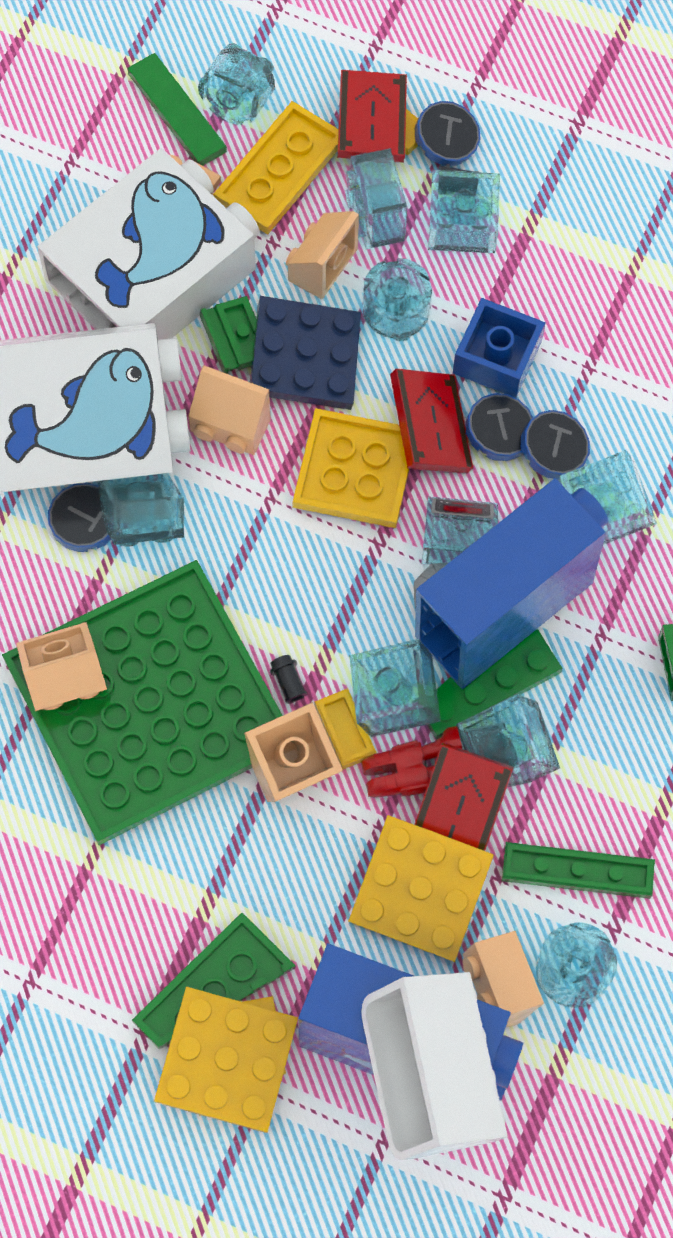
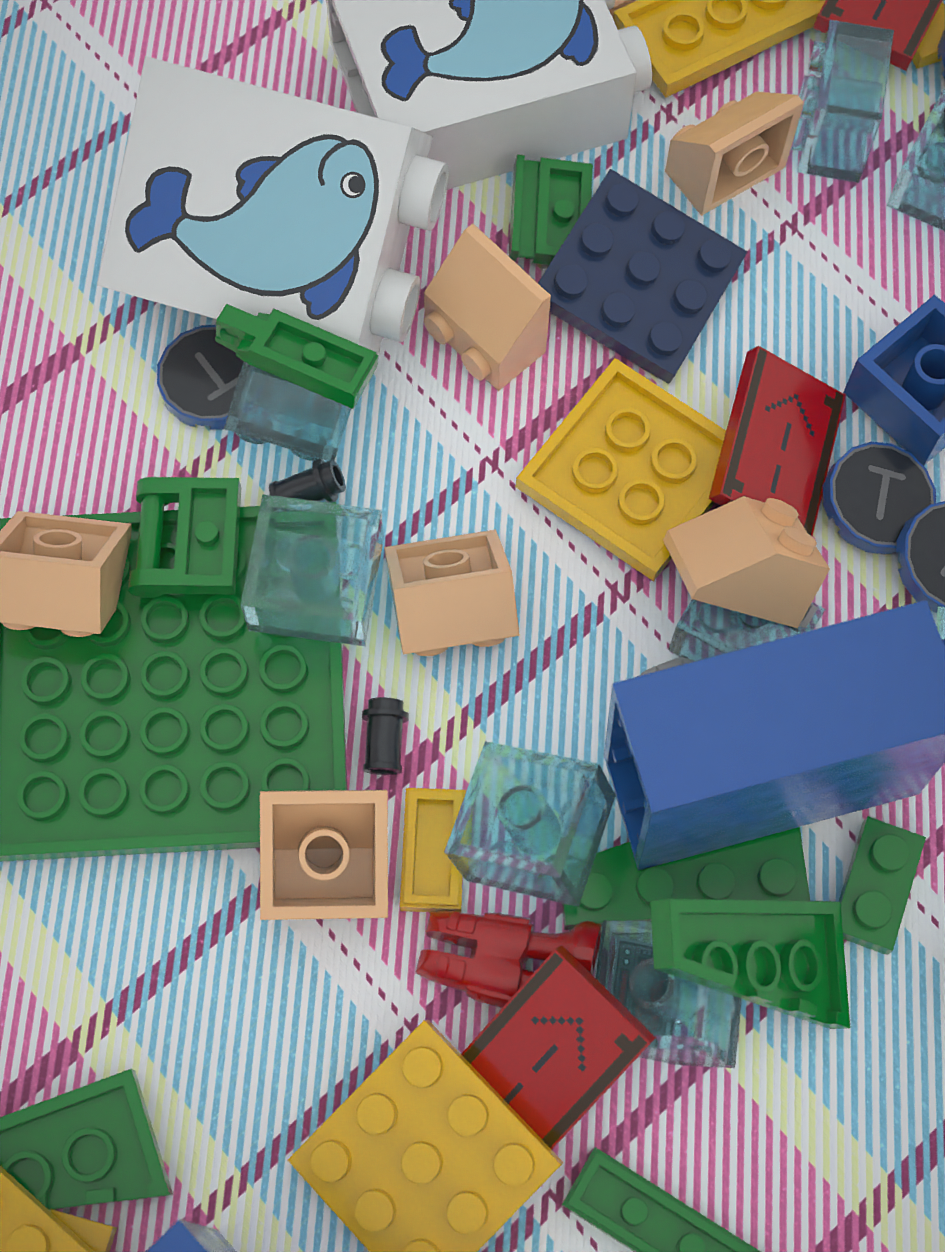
camera: 25 degrees right, 0 degrees up
(134, 609) = (204, 537): none -> green plate
(141, 483) = (298, 353): none -> green hinge
(176, 556) = (314, 484): none -> black pin
(210, 602) = (313, 570): none -> clear light blue brick
(287, 582) = (452, 593): none -> light nougat slope
(397, 299) = (808, 251): clear light blue brick -> none
(446, 493) = (750, 560): none -> light nougat slope
(548, 699) = (758, 951): none -> green wing
(592, 642) = (879, 884): none -> green plate

